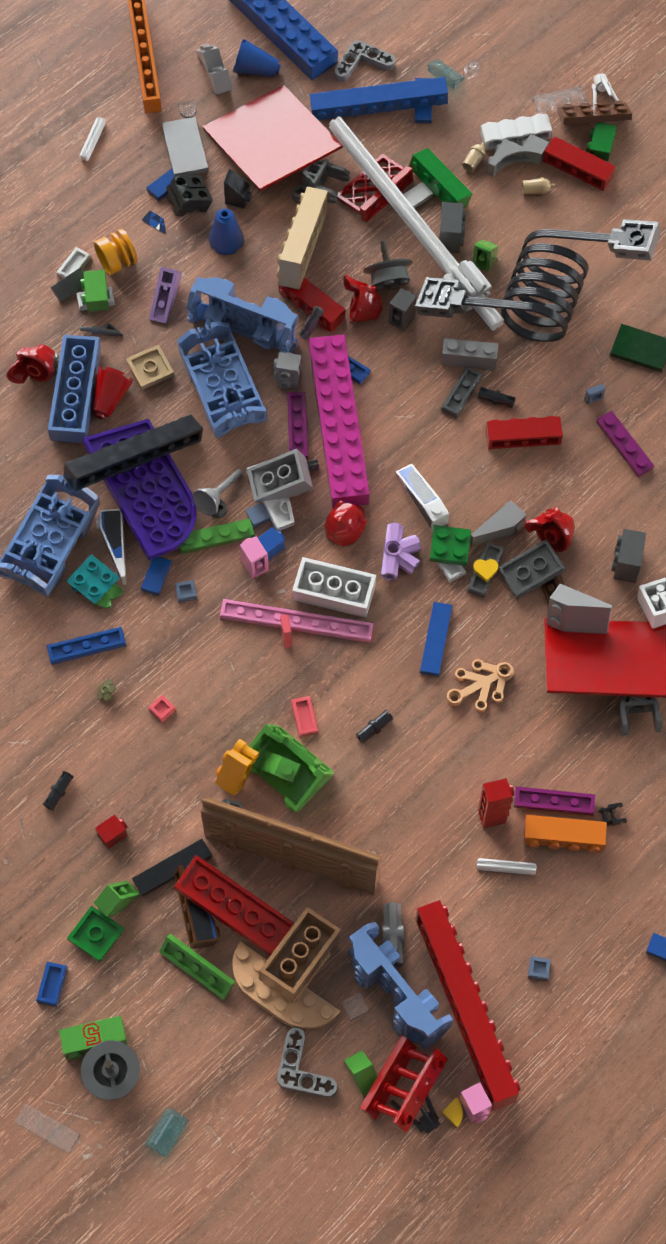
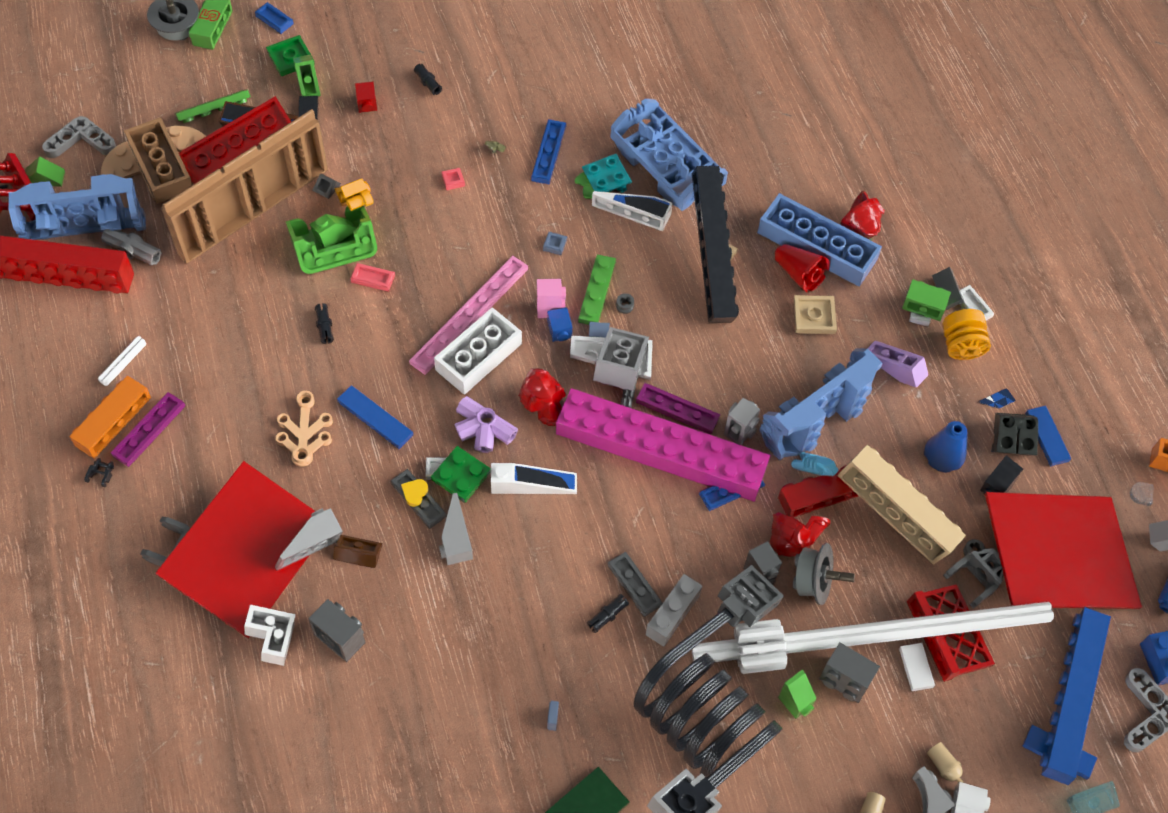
camera: 115 degrees right, 5 degrees down
(92, 139) = (1133, 385): white axle -> none
(102, 330) = (880, 297): dark grey hand -> none
(149, 496) = (664, 248): dark purple plate -> none
(156, 575) = (585, 227): blue tile -> none
(166, 1132) = (107, 39): clear light blue slope -> none
(185, 147) = (1086, 464): light grey tile -> none
(208, 499) = (633, 291): light grey piece -> none
(221, 379) = (761, 358): medium blue piece -> none
(286, 631) = (457, 288): coral tile -> none
(297, 305) = (815, 464): none -> medium azure hinge
(311, 322) = (792, 473): dark grey axle -> none
(439, 178) = (926, 701): green brick -> none
(495, 802) = (167, 355): red brick -> none
(524, 432) = (547, 615): red brick -> none
(531, 569) = (387, 535): dark grey tile -> none
(539, 968) = (18, 340): sand blue tile -> none
(553, 526) = (417, 581): red head -> none
(625, 444) = (476, 716): magenta plate -> none

